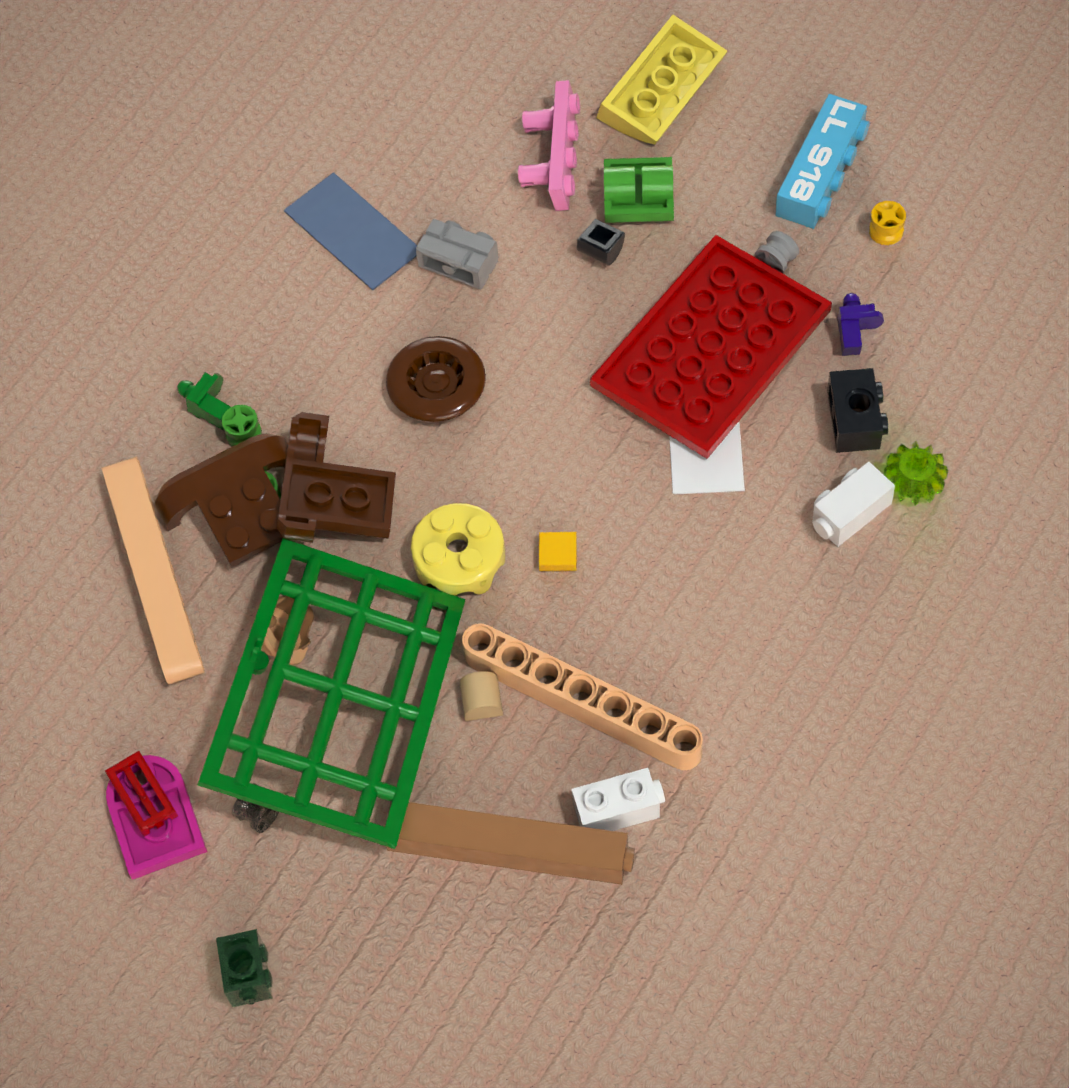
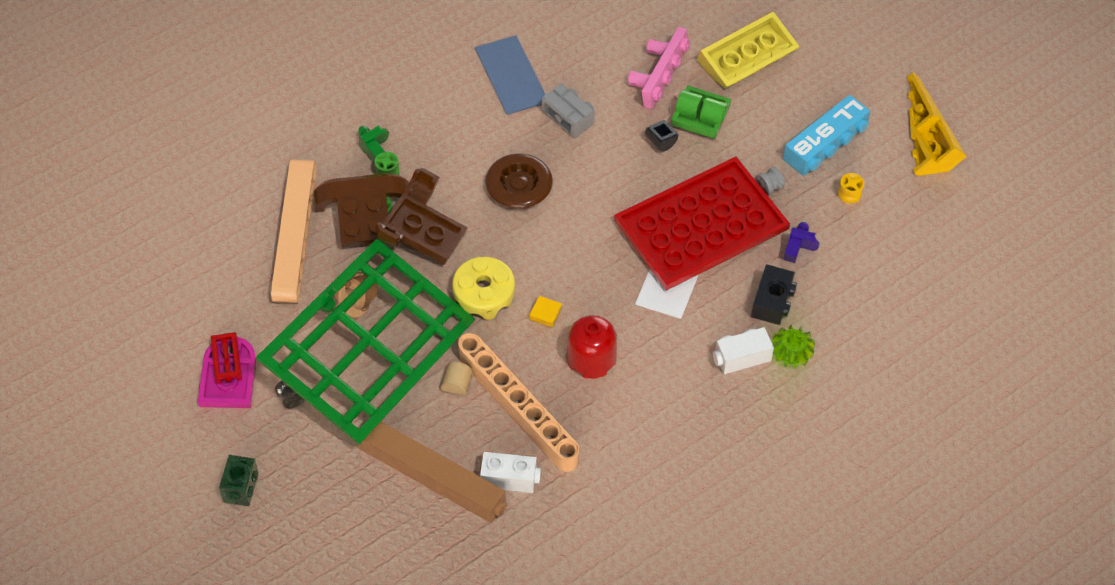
camera: 15 degrees right, 5 degrees down
(648, 578) = (592, 346): none -> red cylinder
(965, 119) = (934, 142): none -> yellow wedge

